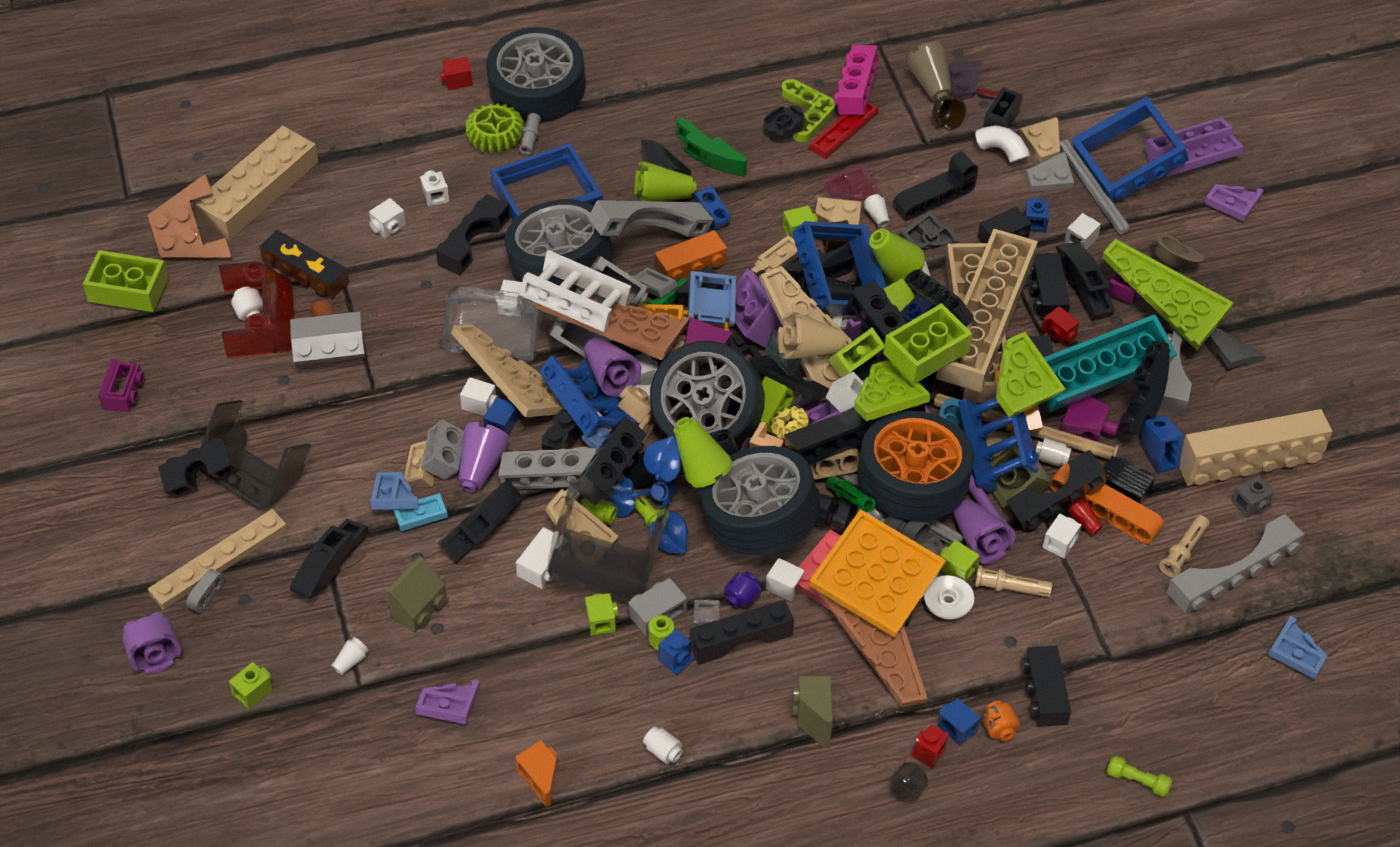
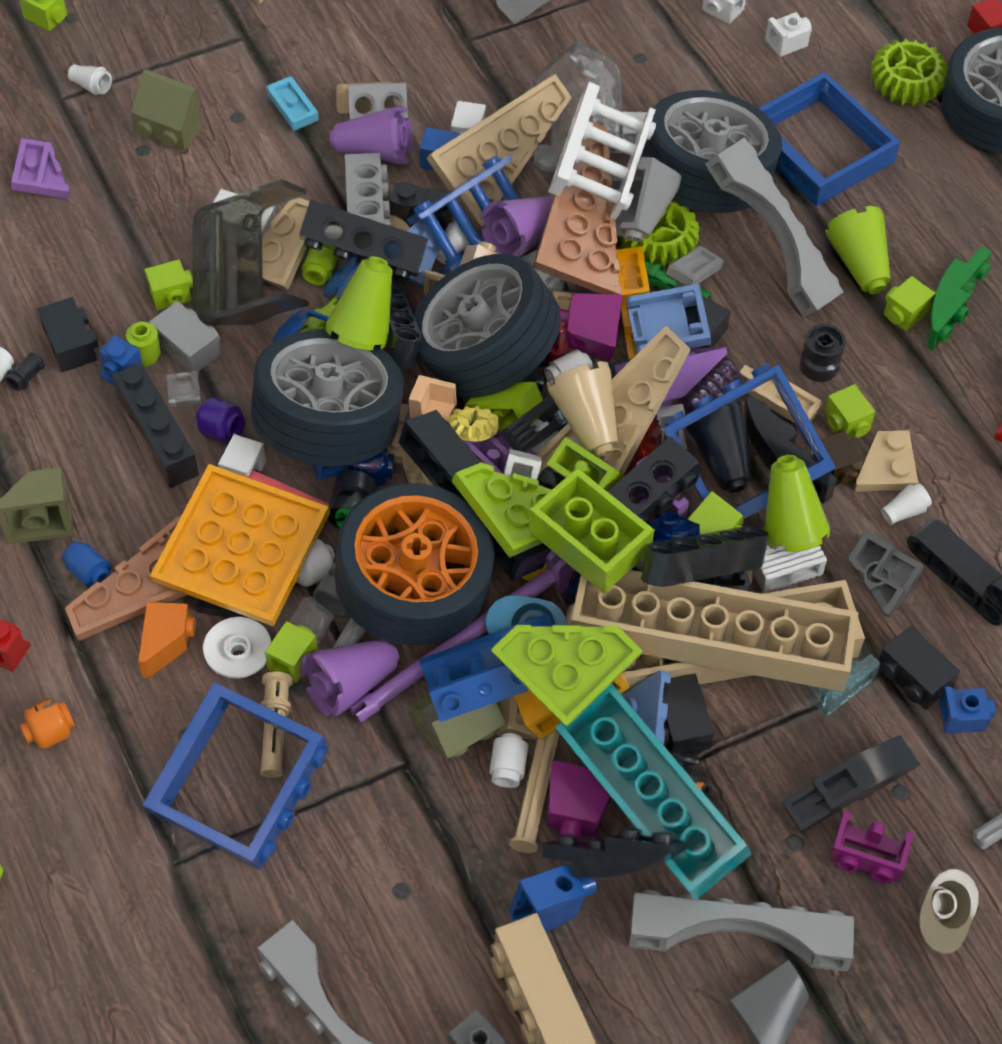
camera: 80 degrees right, 5 degrees up
(325, 557) = (209, 28): black slope -> none
(392, 492) = (311, 70): medium blue wing -> none
(481, 521) = (286, 155): black slope -> none
(487, 216) = (694, 68): black arch -> none
(529, 134) = (914, 109): light grey pin -> none
(637, 688) = (67, 334): none -> black brick
(657, 154) = (917, 247): black slope -> none
(668, 722) = (24, 372): none -> black pin
(691, 256) = (750, 300): orange brick -> none
(711, 172) = (908, 303): none -> lime brick
(714, 207) = (846, 309): blue leg -> none
(748, 225) = (822, 352): none -> black wheel
(851, 184) = (949, 471): clear pink slope -> none
(863, 688) = (86, 563): none -> blue brick
(935, 643) = (164, 635): none -> orange slope
(958, 721) = (43, 673): blue brick -> none
(1033, 508) = (442, 780): black arch -> none
(1035, 626) = (189, 750): none -> blue window
(1046, 686) = (105, 775): black brick -> none
(1049, 284) = (823, 735): black brick -> none
(1060, 326) = (748, 755): red brick -> none
(1061, 535) = (361, 780): white brick -> none
(1083, 230) = (948, 776): white brick -> none
(1084, 515) = (401, 810): red cone -> none
(1117, 509) = (428, 837): orange beam -> none
(1128, 479) = (473, 860): black brick -> none
(1179, 300) = (827, 903): lime wing -> none
(1180, 553) = (357, 936): tan pin -> none

